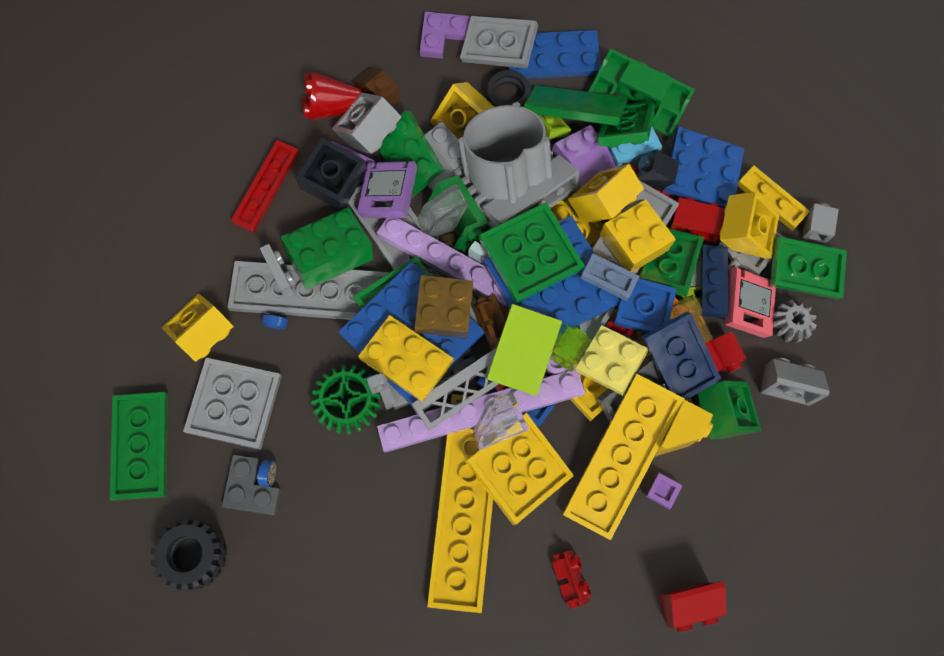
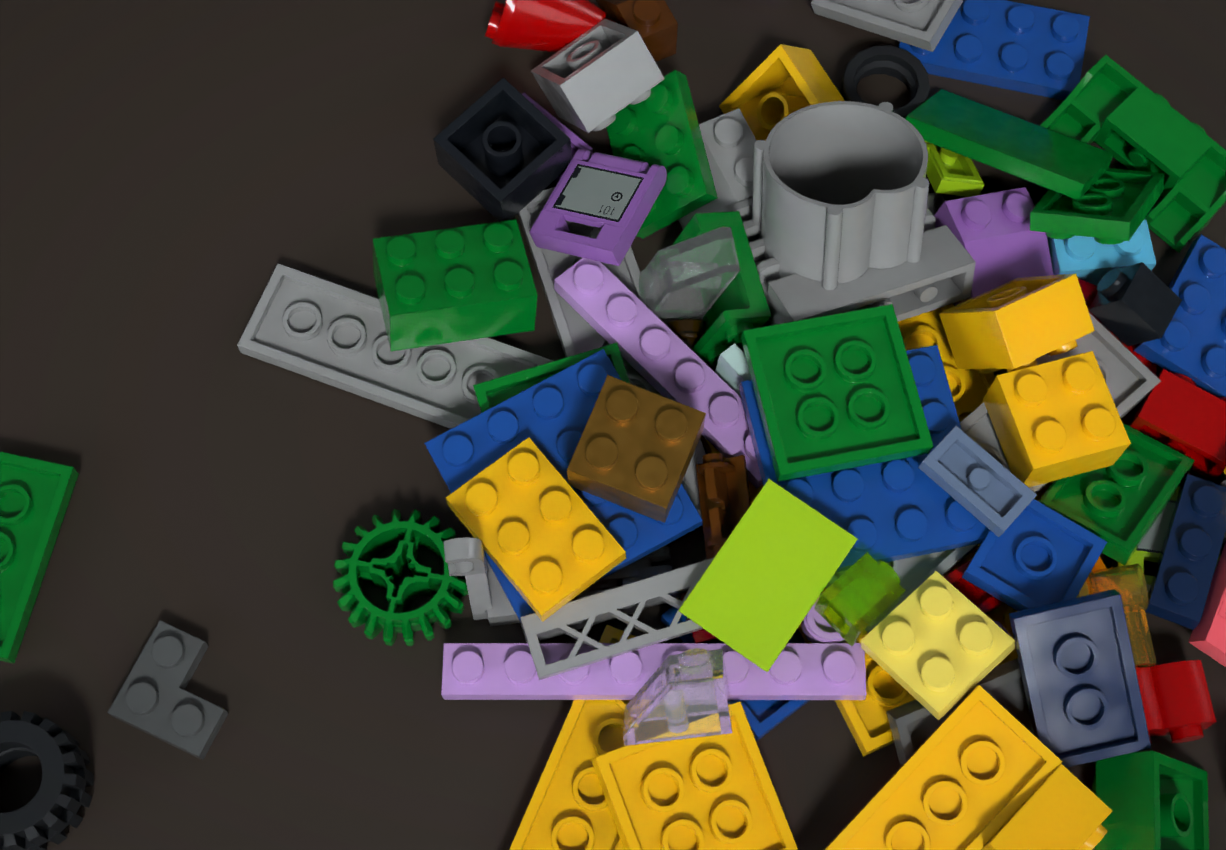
camera: 20 degrees right, 5 degrees down
(197, 327) = (171, 367): yellow slope -> none
(233, 403) = (190, 525): light grey plate -> none
(265, 186) = (376, 144): red plate -> none
(267, 473) = (211, 673): blue tile -> none
(274, 261) = (347, 282): light grey plate -> none
(274, 322) = (314, 395): blue tile -> none

